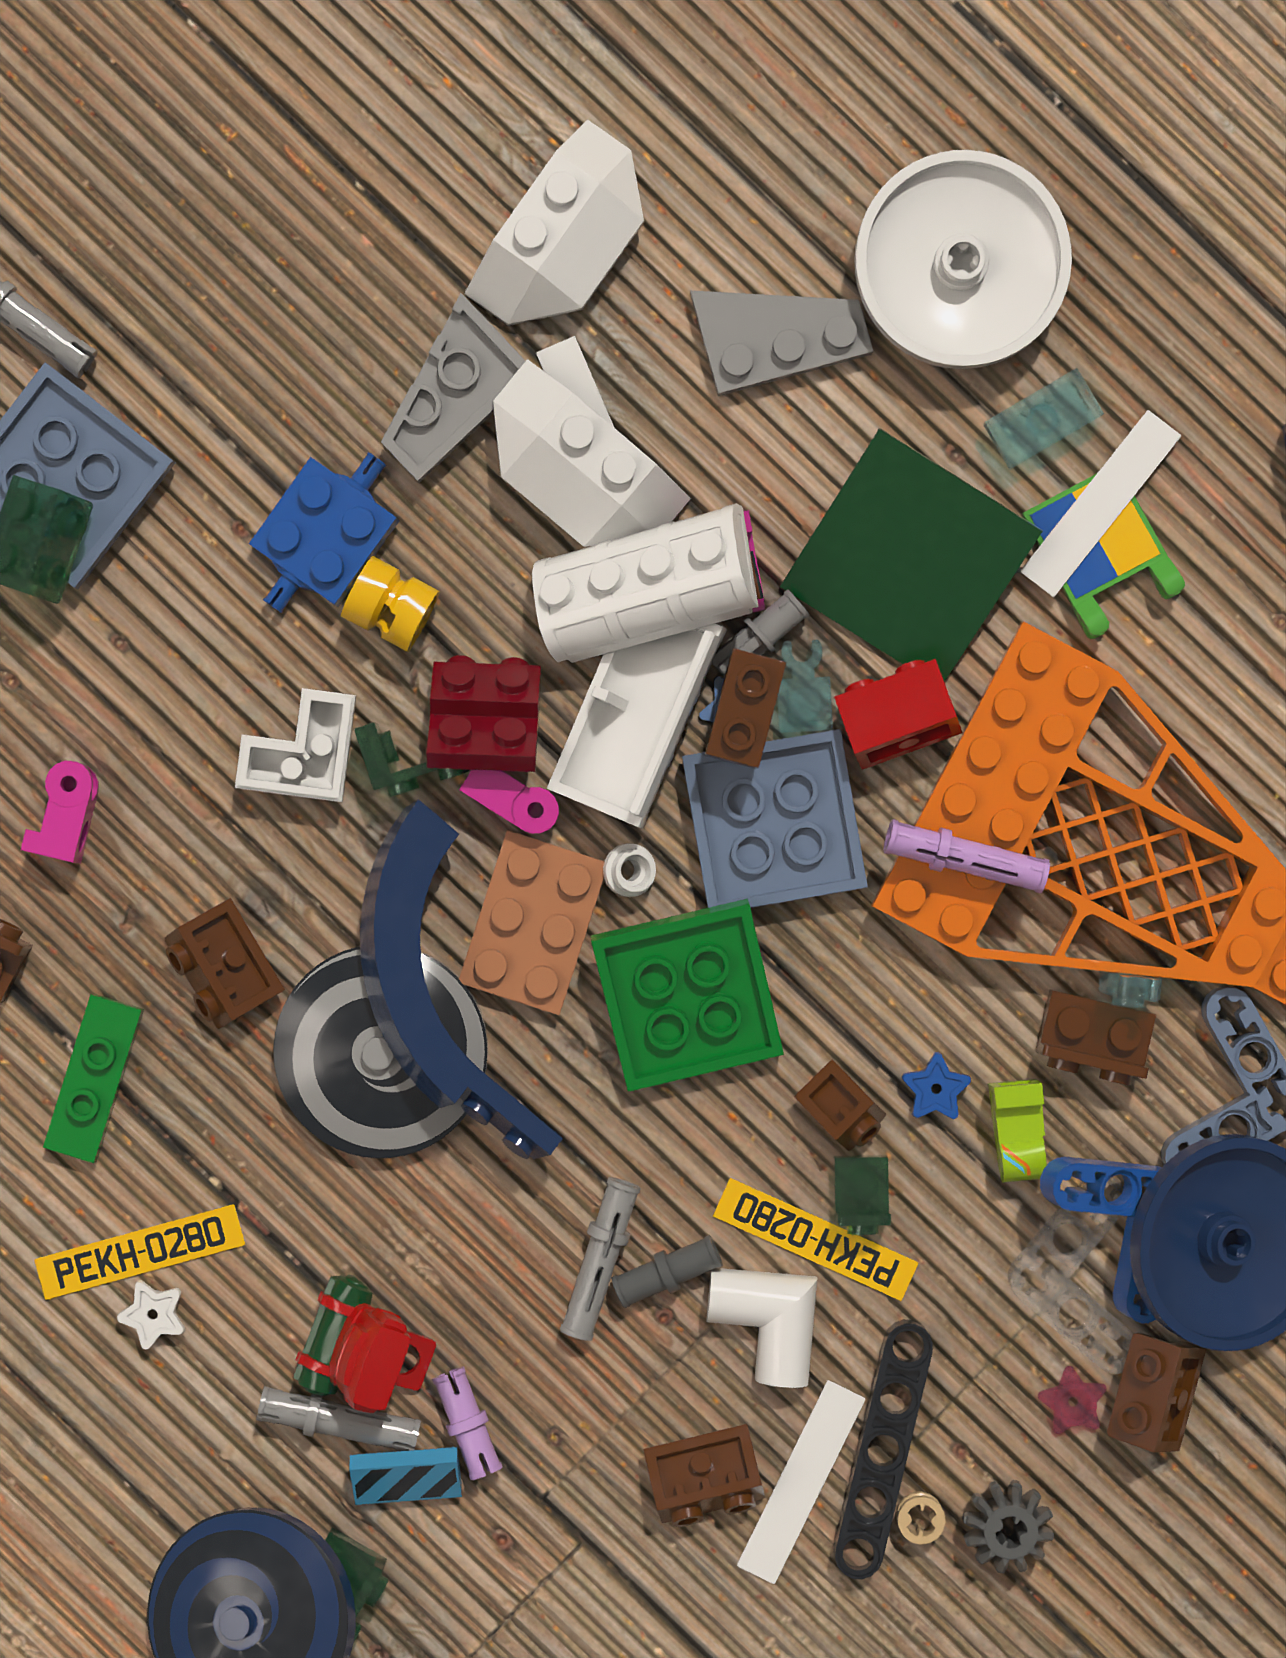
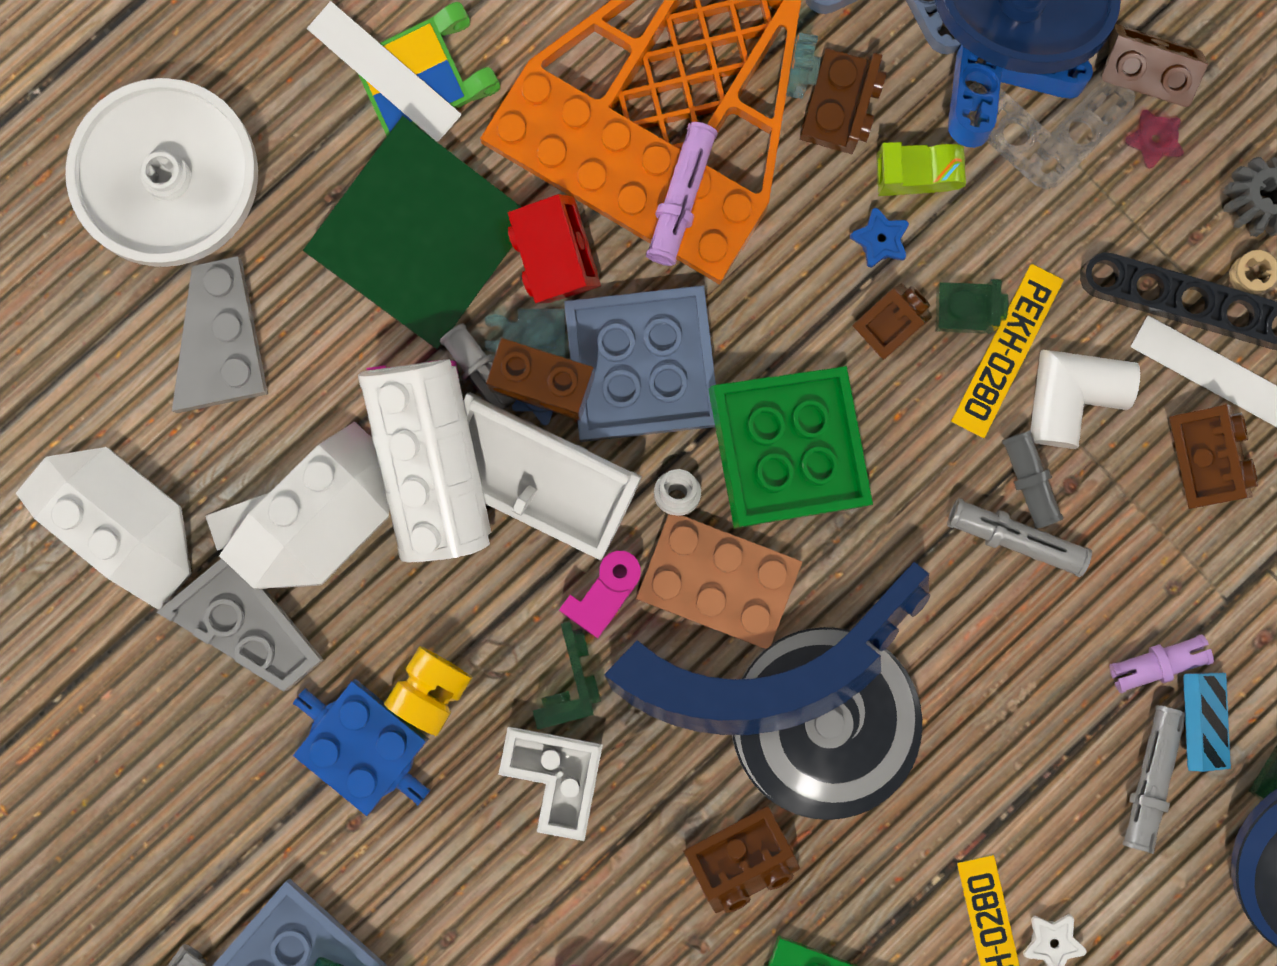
camera: 90 degrees left, 5 degrees down
(359, 1348) = (1094, 756): red piece -> none
(484, 715) = (533, 611): dark red plate -> none
(1043, 418) = (307, 115): clear light blue plate -> none

